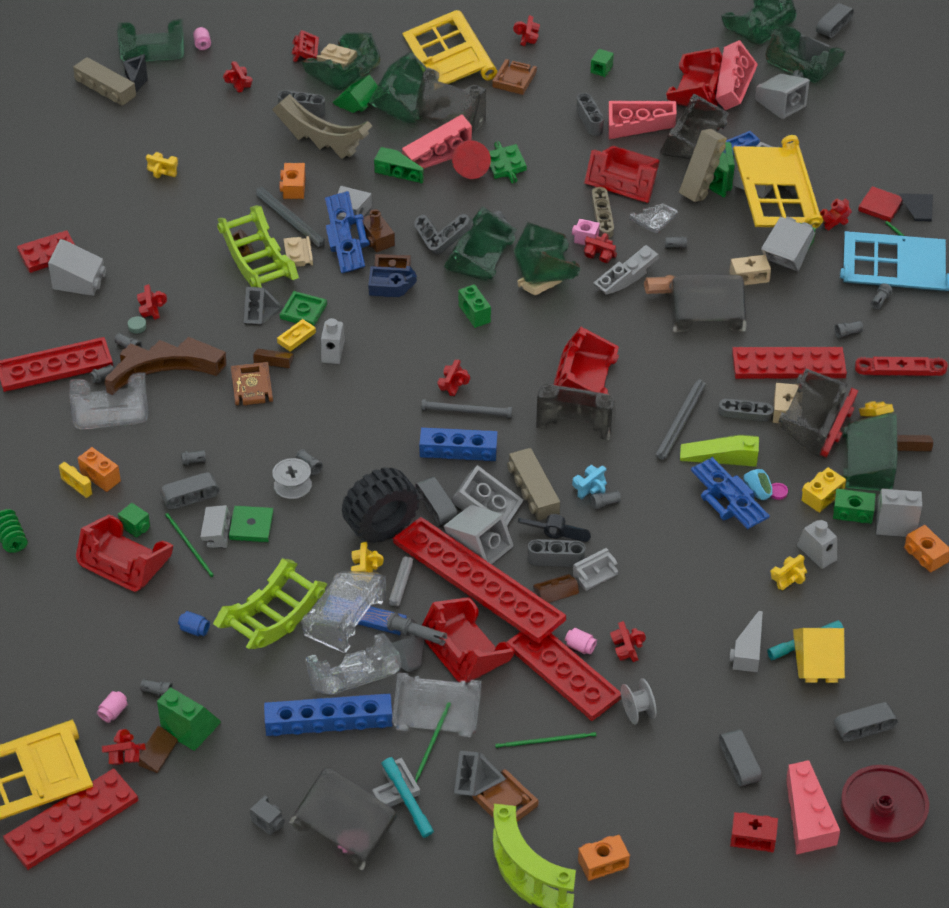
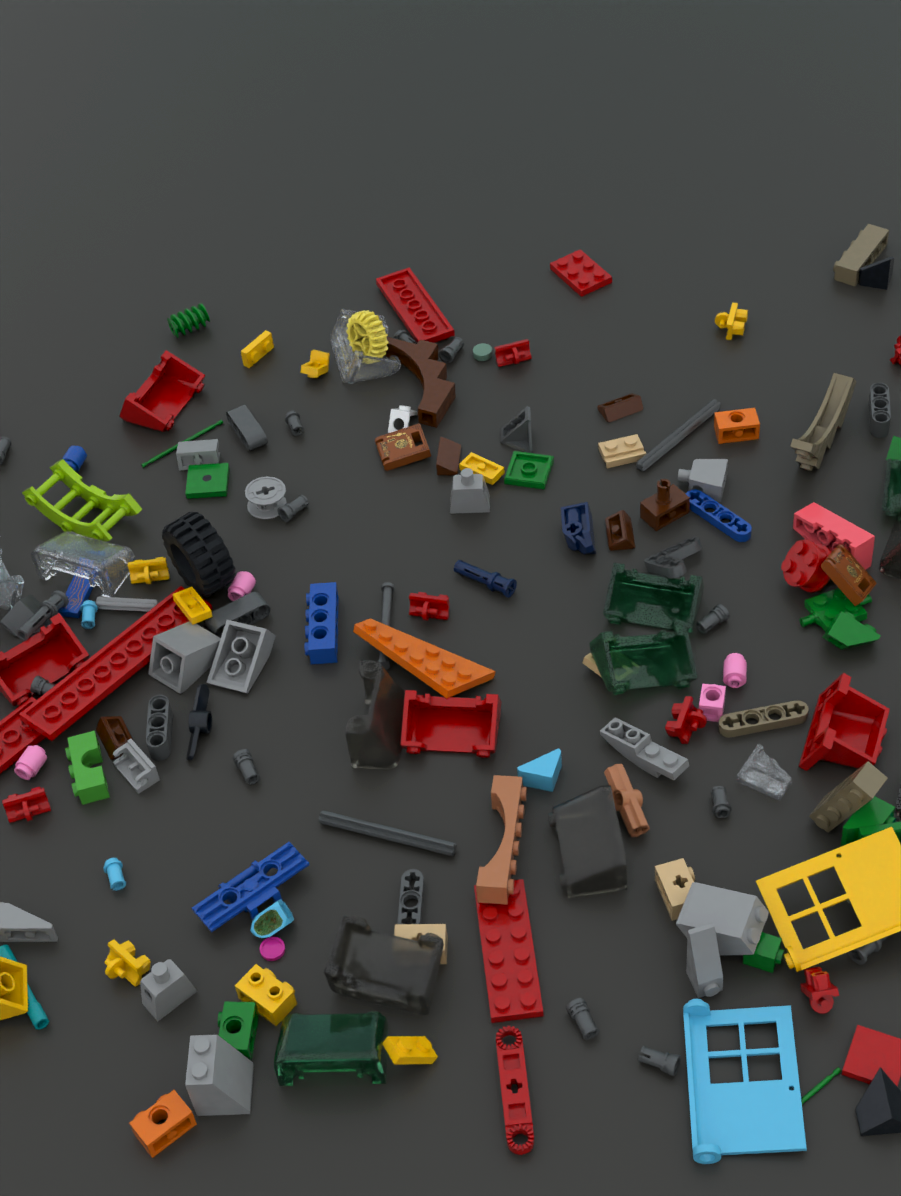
camera: 90 degrees right, 0 degrees up
(75, 269) = (545, 288): light grey slope -> none
(99, 469) = (269, 360): orange brick -> none
(109, 384) = (367, 334): none -> light yellow gear
(116, 438) = (317, 365): none -> yellow bracket
(134, 520) = (205, 397): green brick -> none
(212, 378) = (403, 413): none -> white bracket
(284, 265) = (610, 428): lime fence -> none
(340, 234) = (672, 457): blue piece -> none
(397, 165) = (793, 498): green slope -> none
(407, 199) = (700, 501): none -> blue beam
(409, 607) = (88, 611): none -> medium azure pin
(428, 522) = (192, 605): none -> yellow plate
(433, 339) = (493, 580): none -> dark blue pin
(474, 305) = (551, 608): green brick -> none
(489, 139) = (848, 574): none -> dark orange container
(496, 634) = (40, 685): none -> dark grey pin
(524, 374) = (432, 665): none -> orange wing
(533, 484) = (265, 696): dark tan brick -> none
(535, 154) = (848, 632): none -> green slope
(558, 217) = (734, 670): none -> bright pink brick
(579, 606) = (89, 782): none -> bright green arch
(593, 483) = (268, 752): medium azure hips -> none
(637, 325) = (542, 771): none -> medium azure slope
(703, 582) = (113, 868): none -> medium azure pin
(726, 450) = (337, 884): lime wedge -> none
(739, 350) = (495, 879): none -> nougat arch
(818, 260) = (704, 961): none -> light grey slope
(835, 434) = (410, 1015): red piece -> none
(914, 443) = (368, 1106): reddish brown slope -> none

